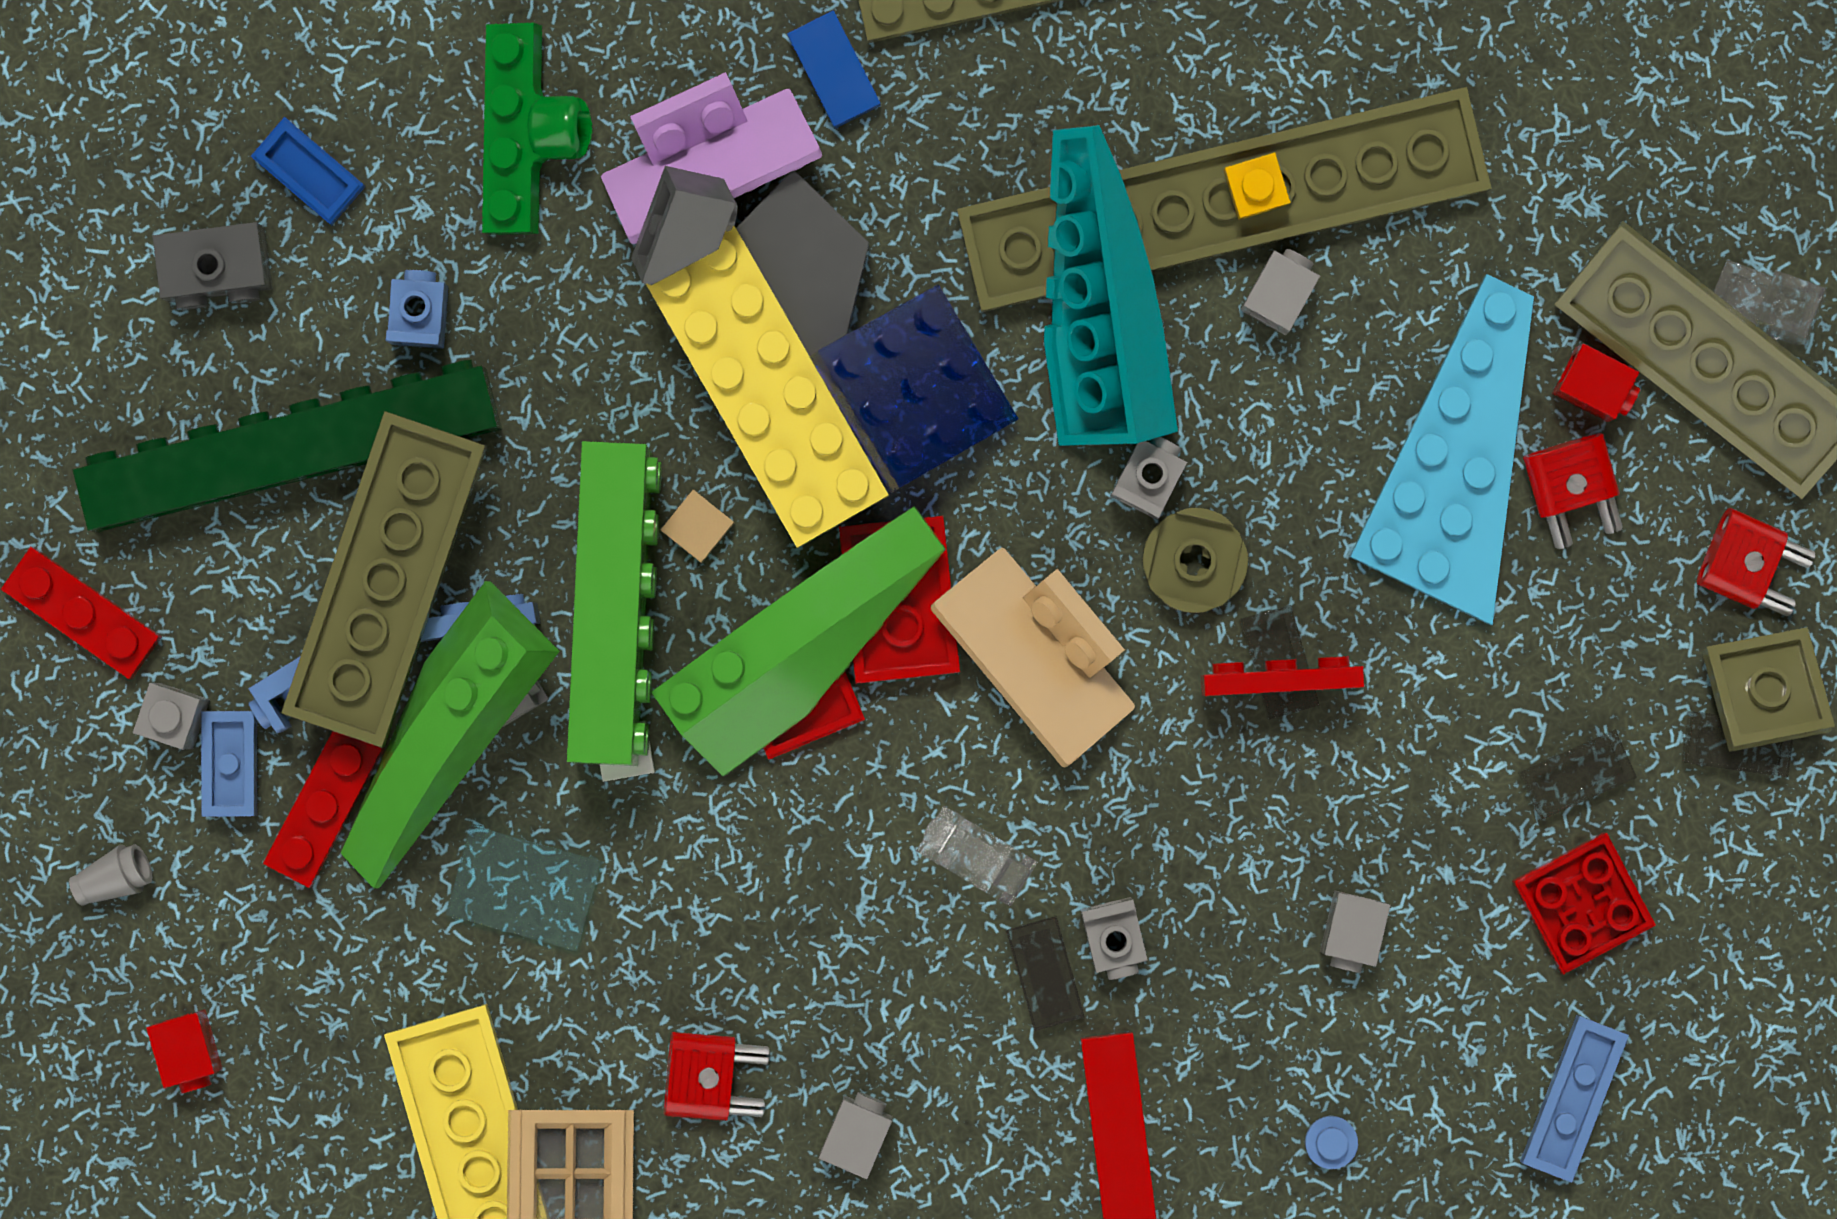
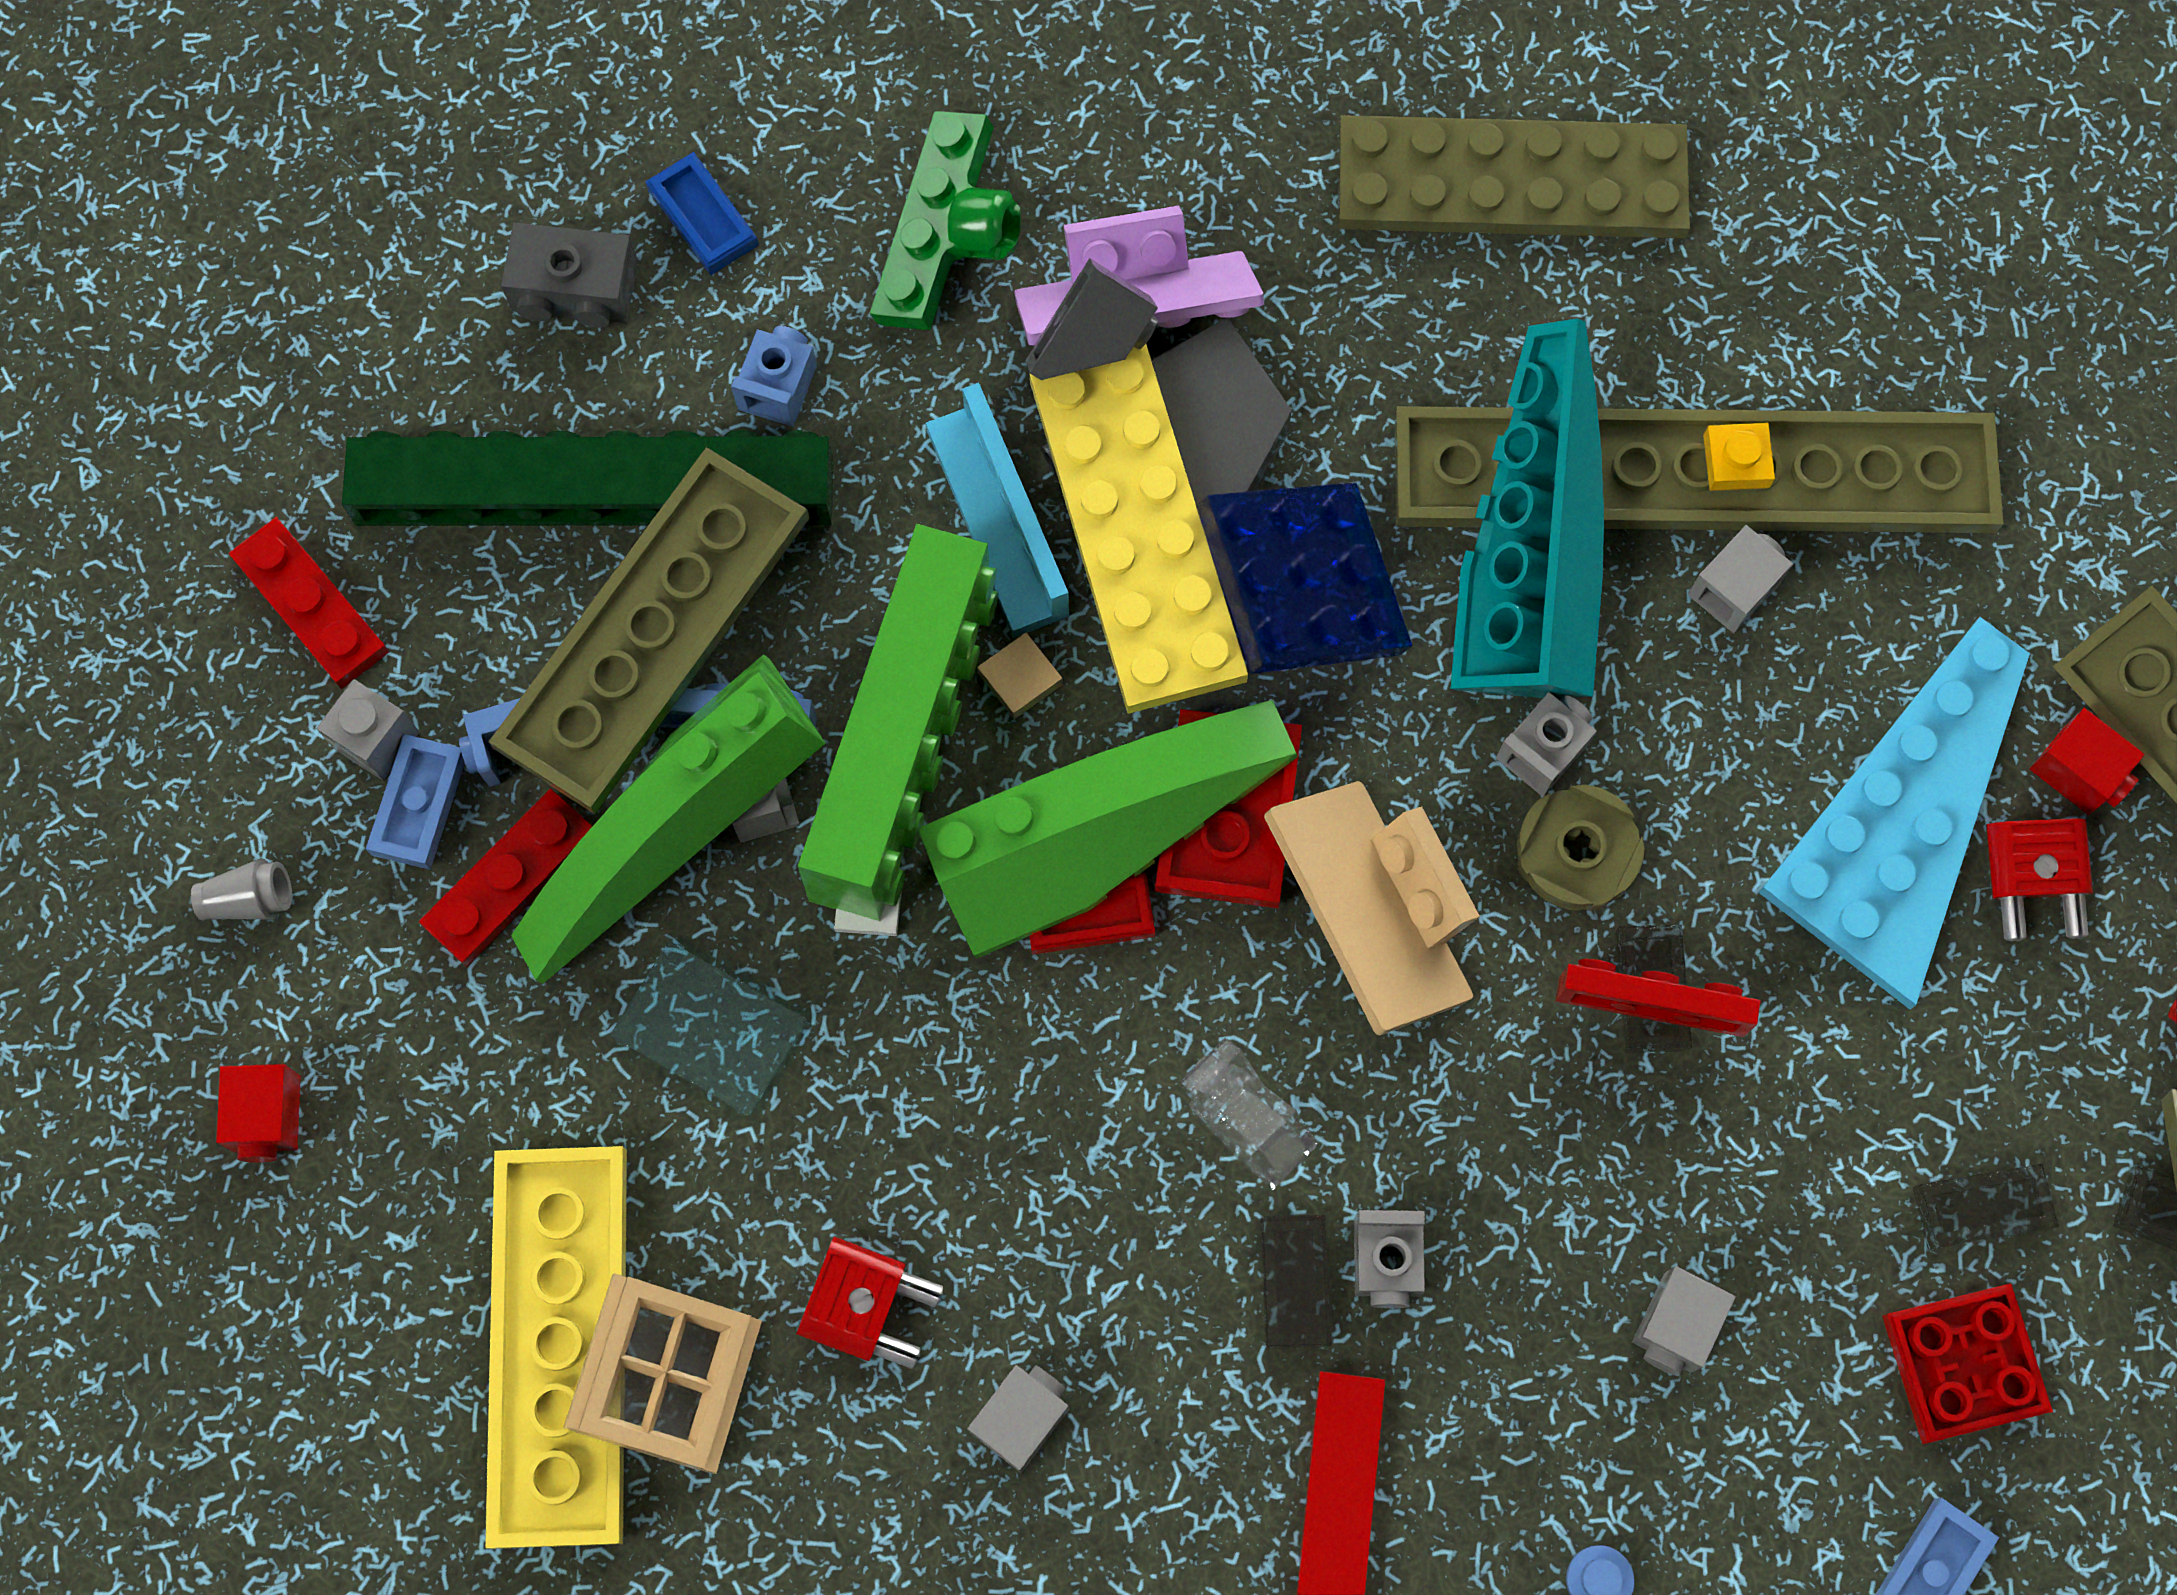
camera: 10 degrees right, 15 degrees down
(640, 390) = (999, 514): none -> medium azure fence
(834, 69) = (1295, 243): blue tile -> none

